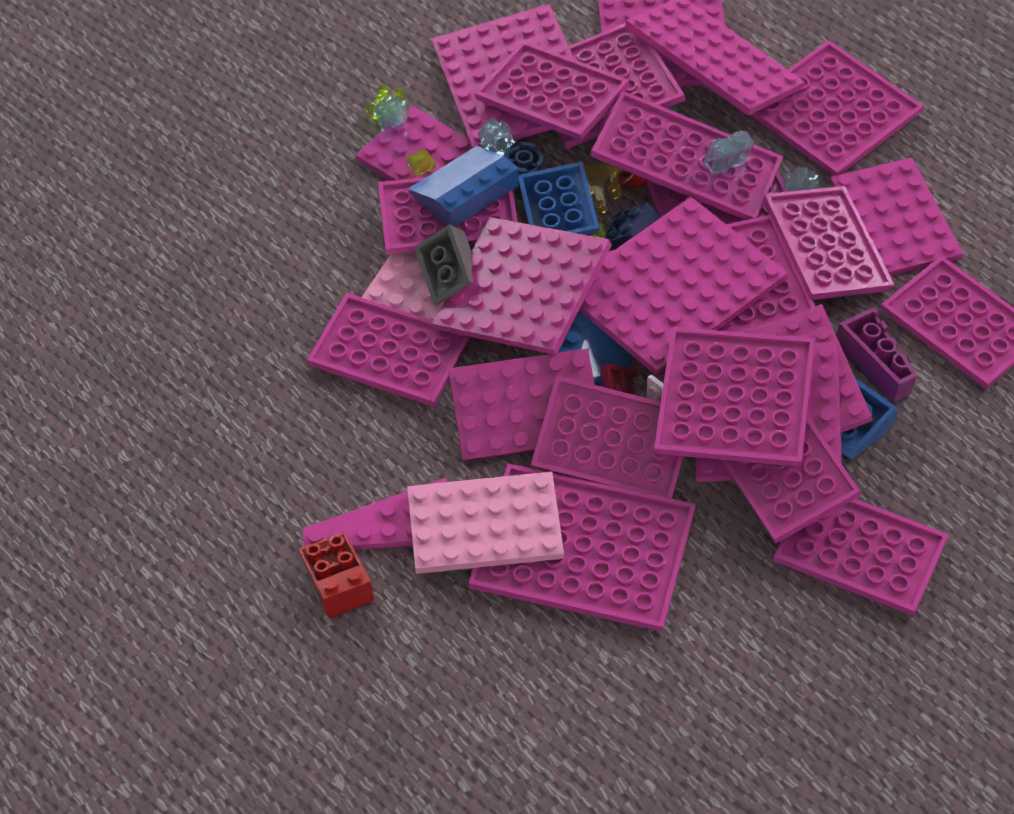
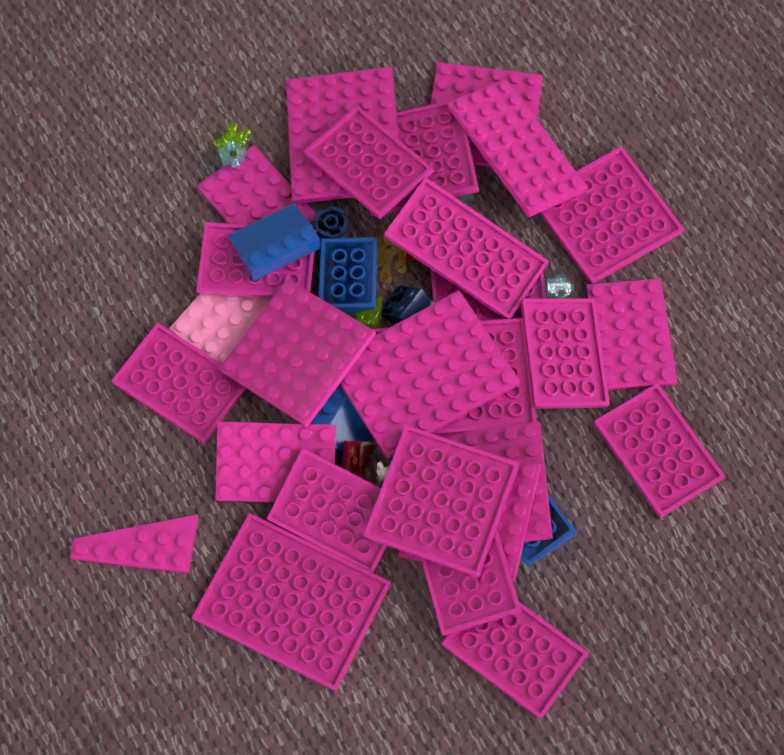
camera: 10 degrees right, 15 degrees up
(337, 575) = (89, 588): red slope -> none
(420, 162) = (246, 206): clear neon green tile -> none
(445, 263) = (240, 318): dark grey slope -> none
(485, 522) = (216, 566): bright pink plate -> none
(496, 136) = (310, 200): clear light blue brick -> none
(729, 152) = (503, 254): clear light blue brick -> none
(876, 354) = (576, 469): magenta wedge -> none

